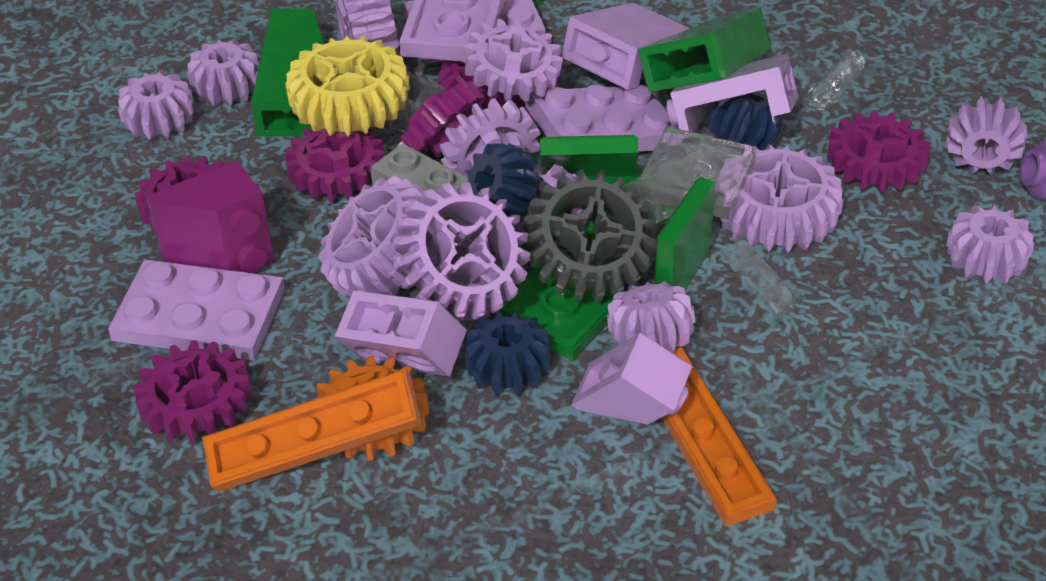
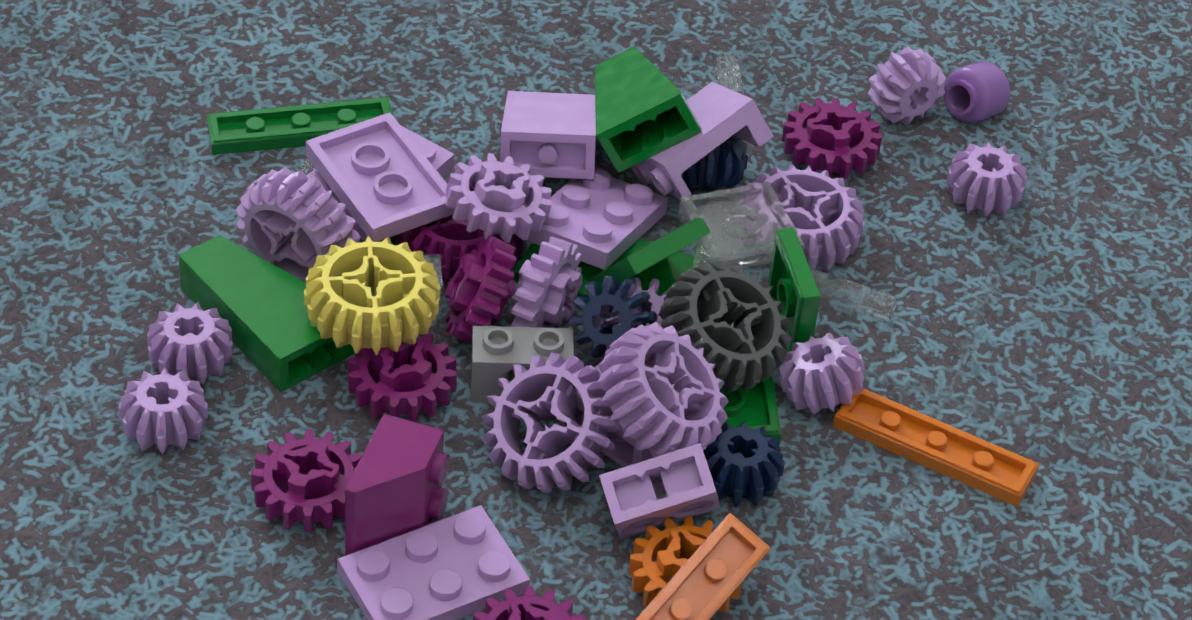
camera: 45 degrees left, 0 degrees up
(634, 382) = (866, 432): lavender slope -> none

